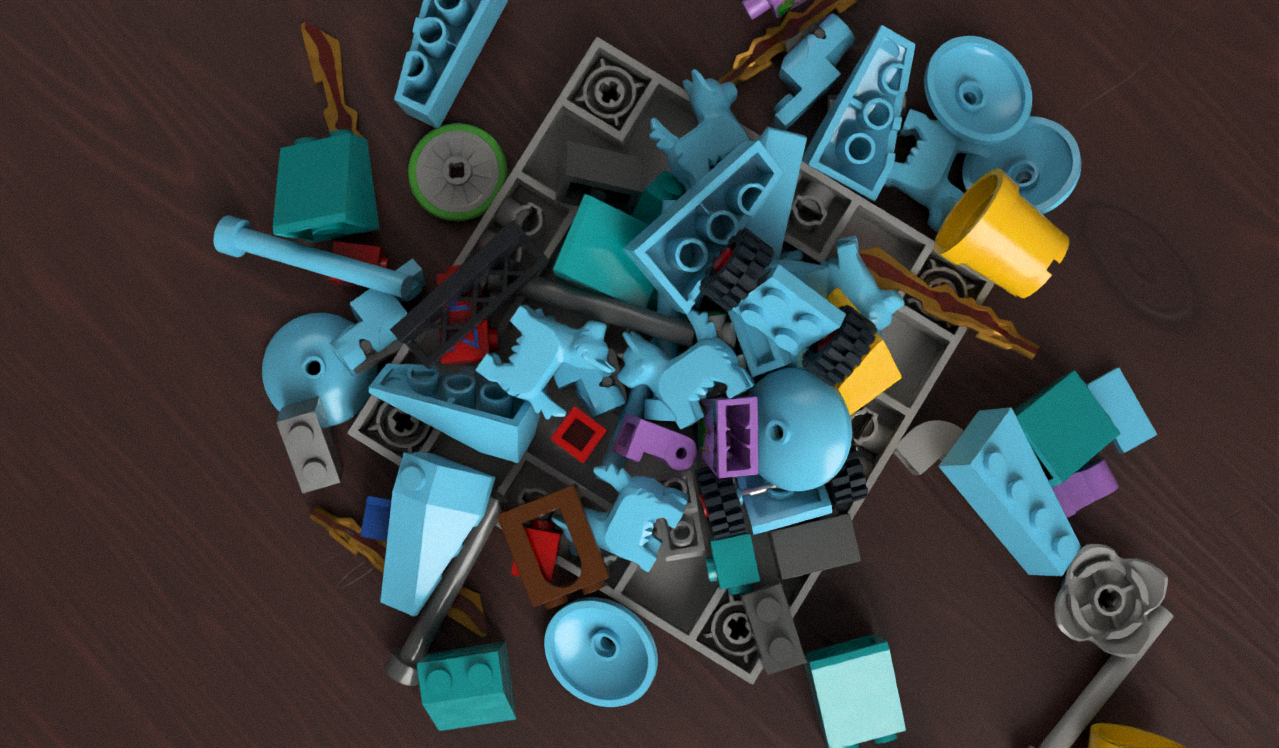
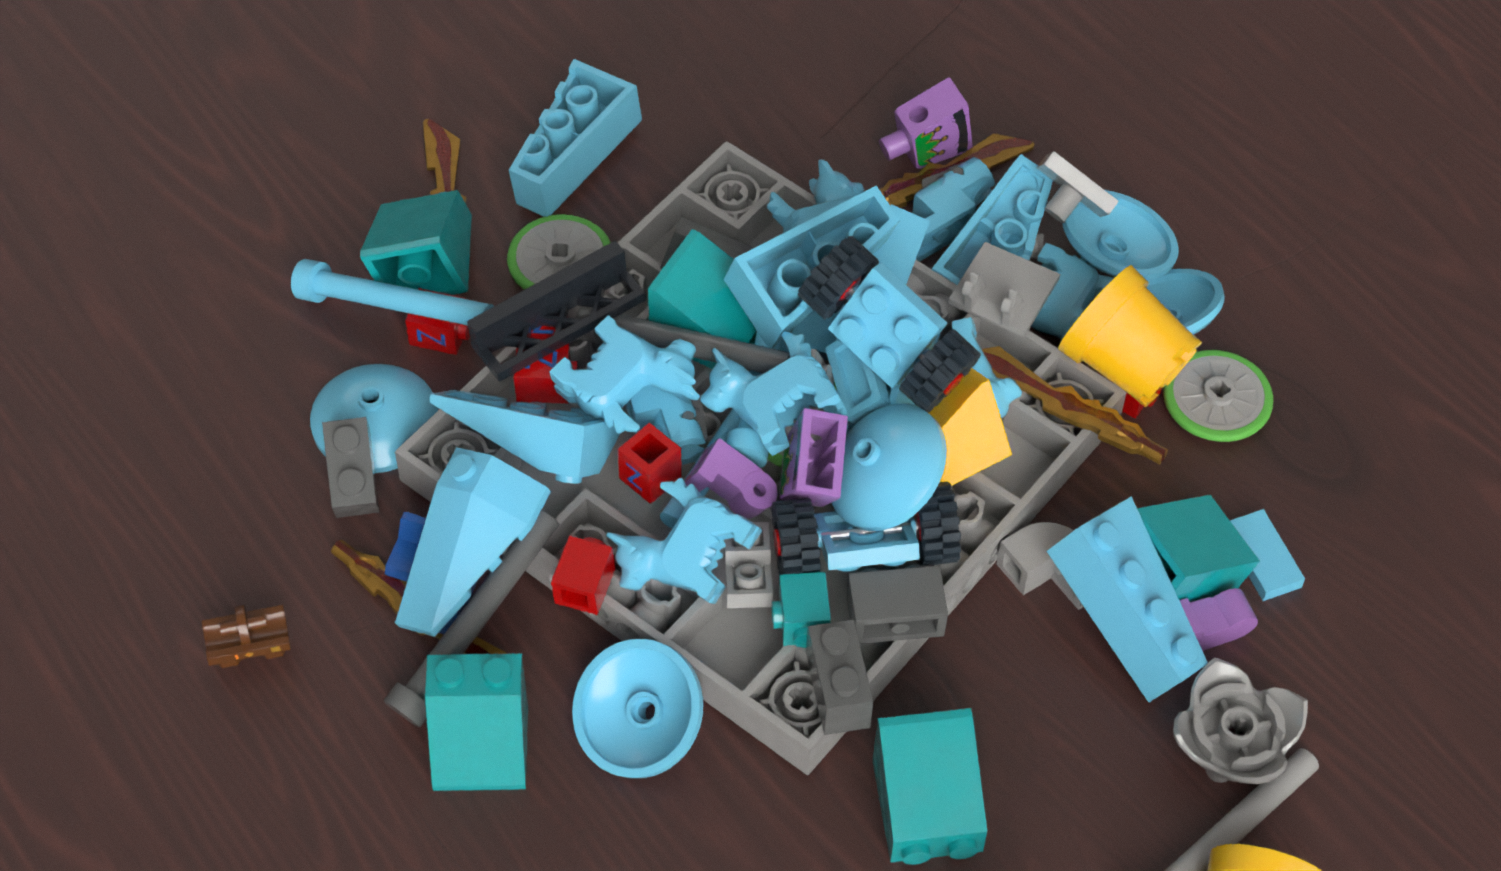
camera: 10 degrees right, 30 degrees down
(254, 621) = (246, 635): none -> reddish brown hips
(370, 339) = (445, 366): medium azure plate -> none
(593, 565) = (594, 519): reddish brown panel -> none
(878, 184) = (1004, 289): none -> light grey plate
(935, 63) = (1074, 188): none -> light grey tile
(1099, 246) = (1243, 400): none -> light grey wheel

